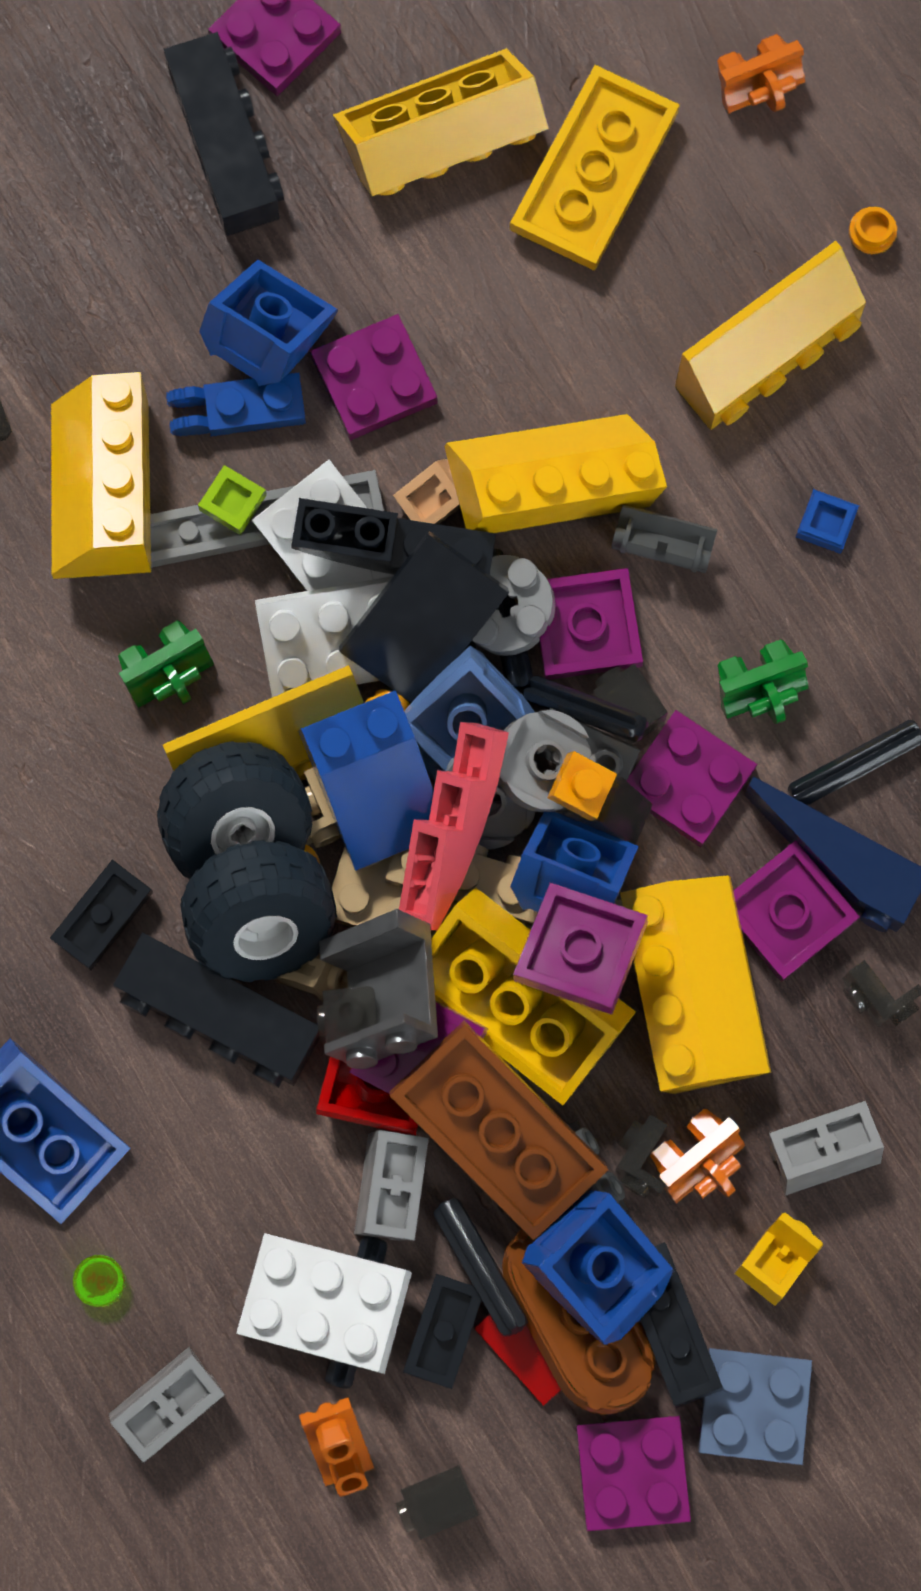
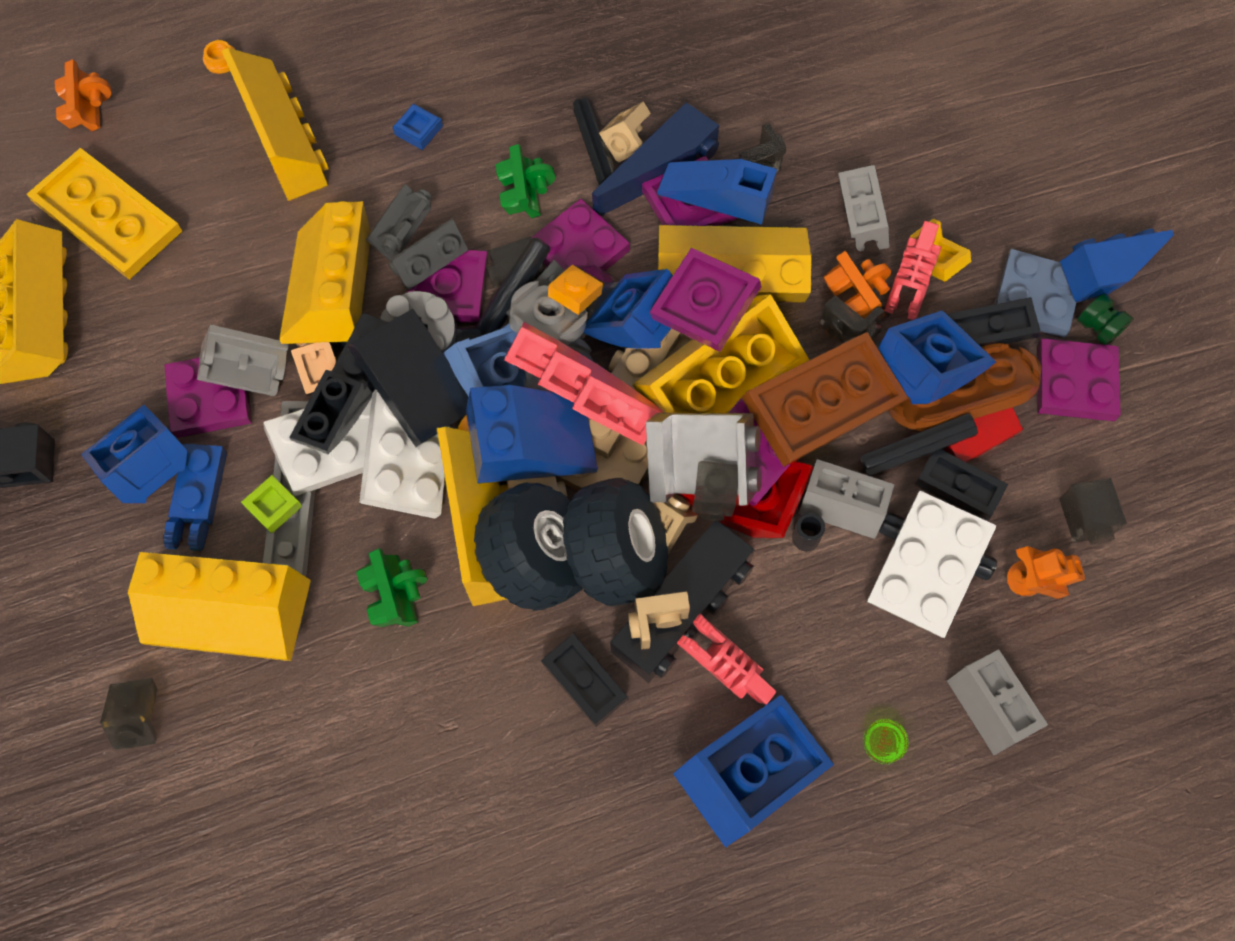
camera: 75 degrees left, 10 degrees down
(147, 1076) = (728, 663): none -> coral hinge
(182, 985) = (662, 609): none -> tan bracket
(334, 1132) = (812, 522): none -> black hinge
(411, 407) = (242, 360): none -> light grey hinge
(599, 580) = (428, 254): none -> dark grey hinge
(725, 1498) = (1105, 319): none -> dark green wheel
(737, 1229) = (915, 269): none -> coral hinge
(795, 941) = (724, 186): none -> blue slope
(800, 1496) = (1109, 264): none -> blue slope
(880, 796) = (623, 130): none -> tan bracket

